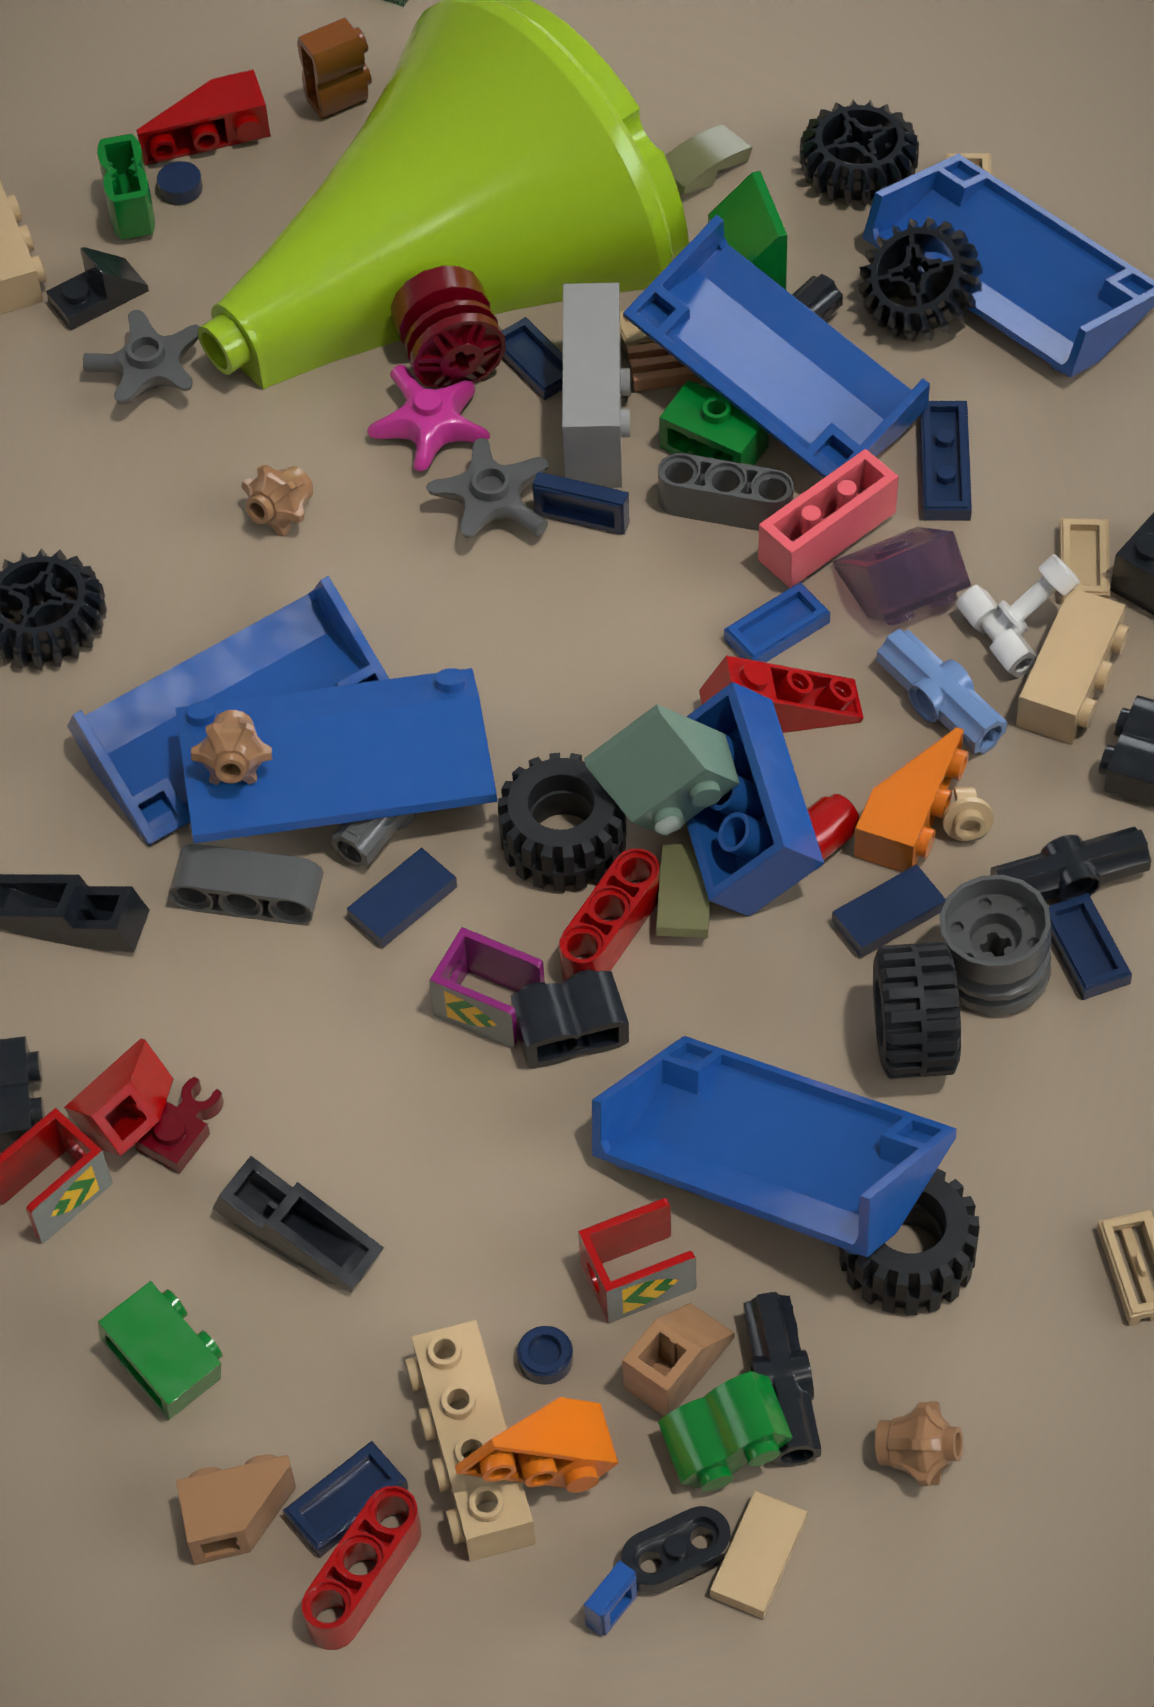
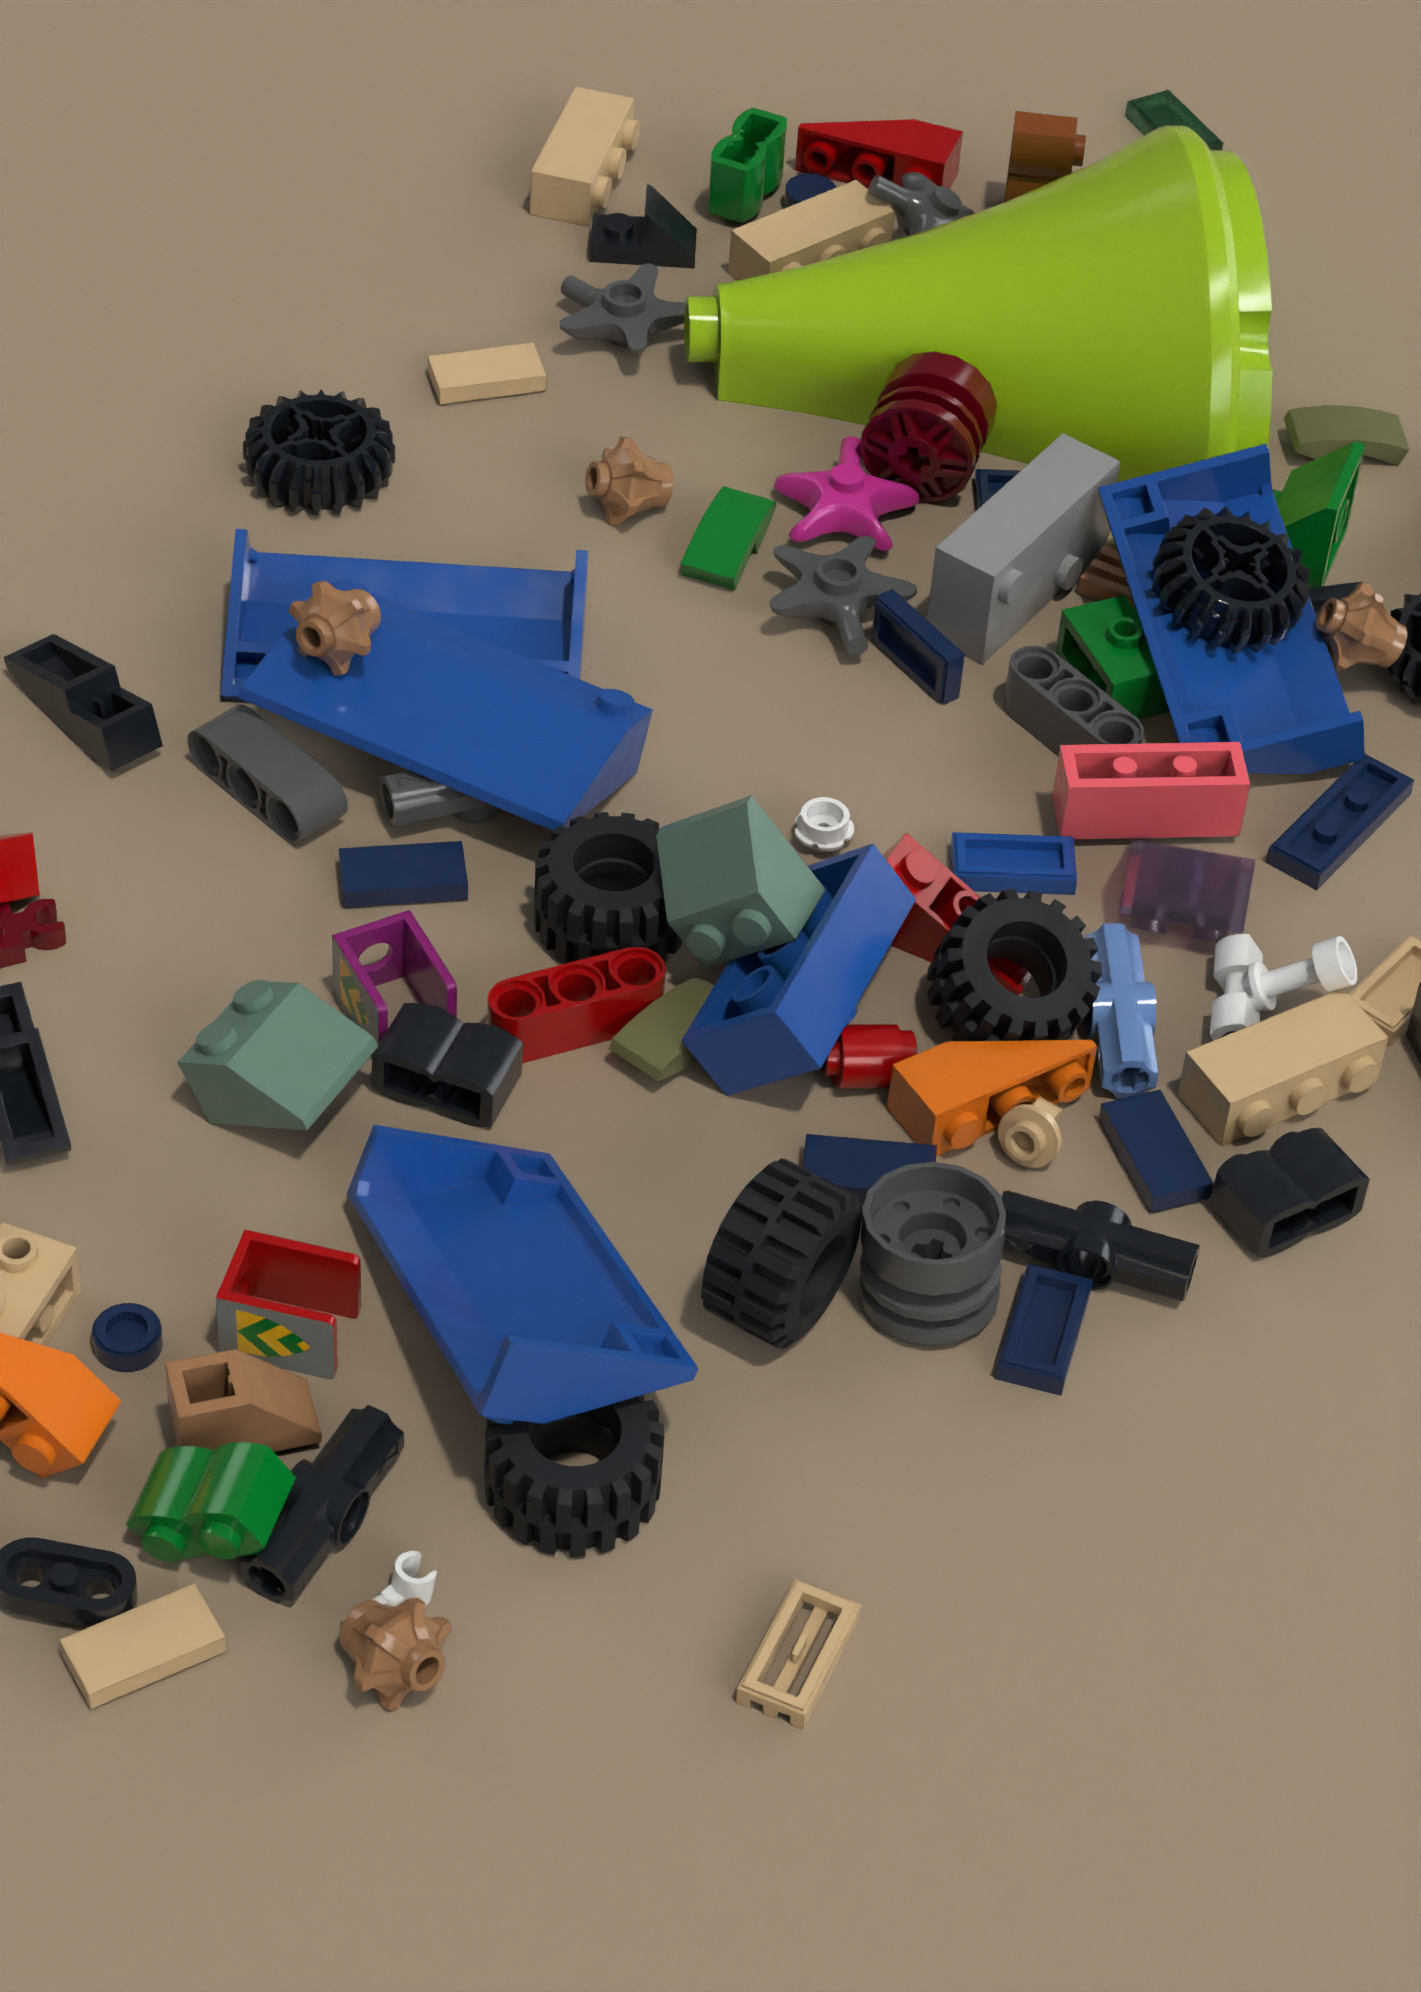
camera: 30 degrees right, 10 degrees down
(90, 469) = (486, 373): none -> tan tile
(222, 223) = (811, 232): none -> tan brick
(287, 151) = (920, 202): none -> dark grey animal
(378, 496) = (727, 536): none -> green slope
(469, 1093) = (274, 1057): none -> sand green slope
(639, 668) = (824, 825): none -> white plate
(762, 330) = (1230, 580): none -> black gear
(860, 312) = (1360, 630): none -> medium nougat rock
(875, 1401) = (404, 1585): none -> white hand
(890, 687) = (1036, 939): none -> black tyre
(1042, 775) = (1156, 1151): none -> dark blue tile

